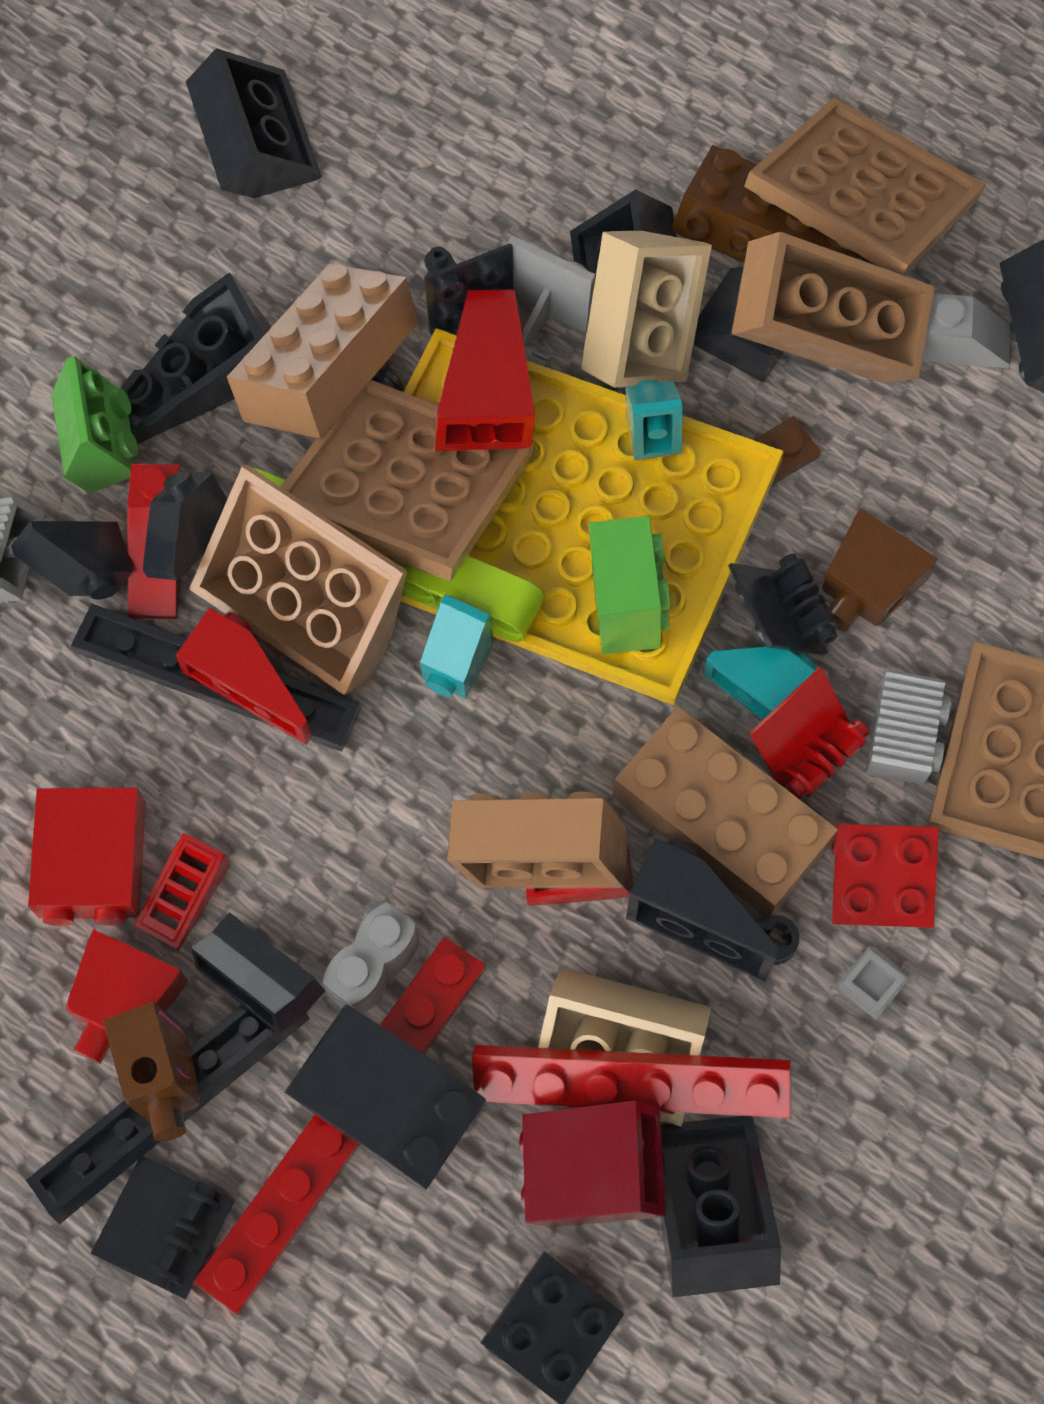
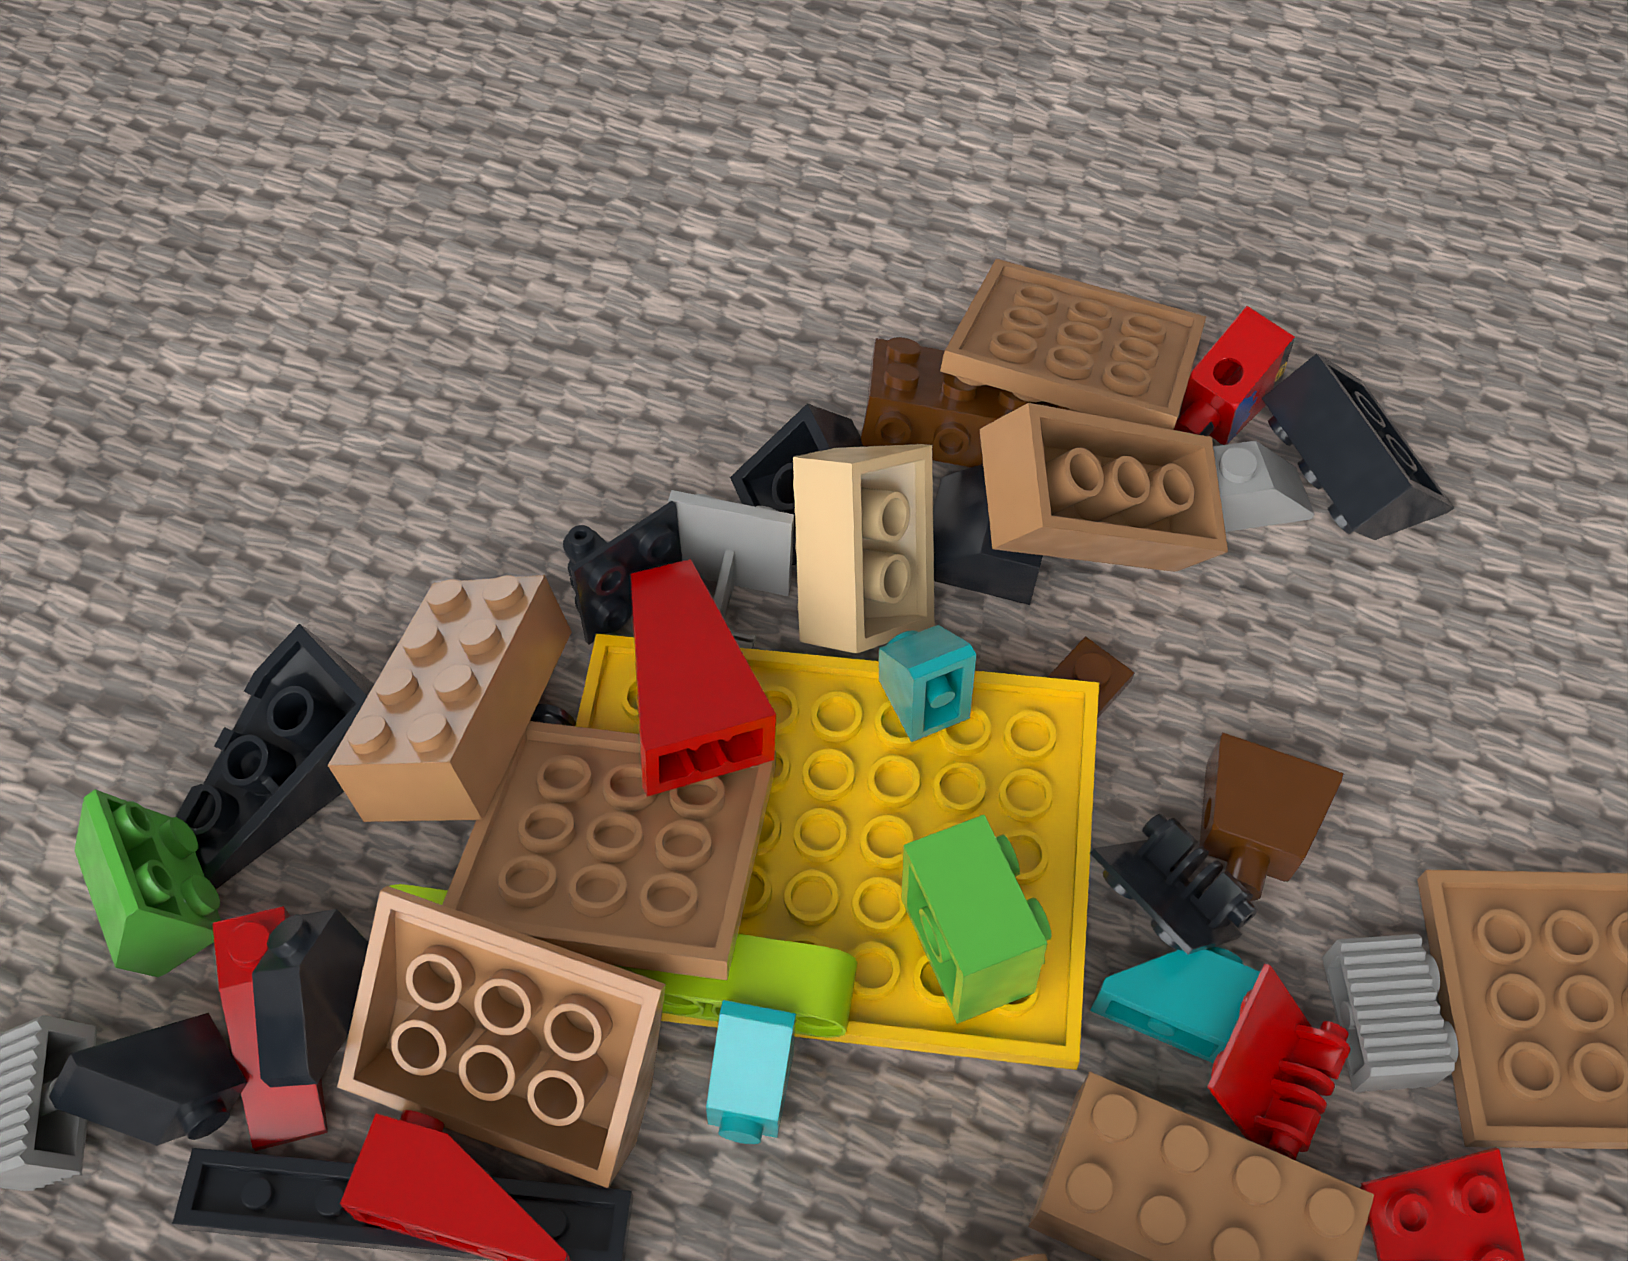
camera: 20 degrees left, 10 degrees down
(251, 125) = (286, 438): black slope -> none
(977, 244) = (1234, 376): none -> red torso

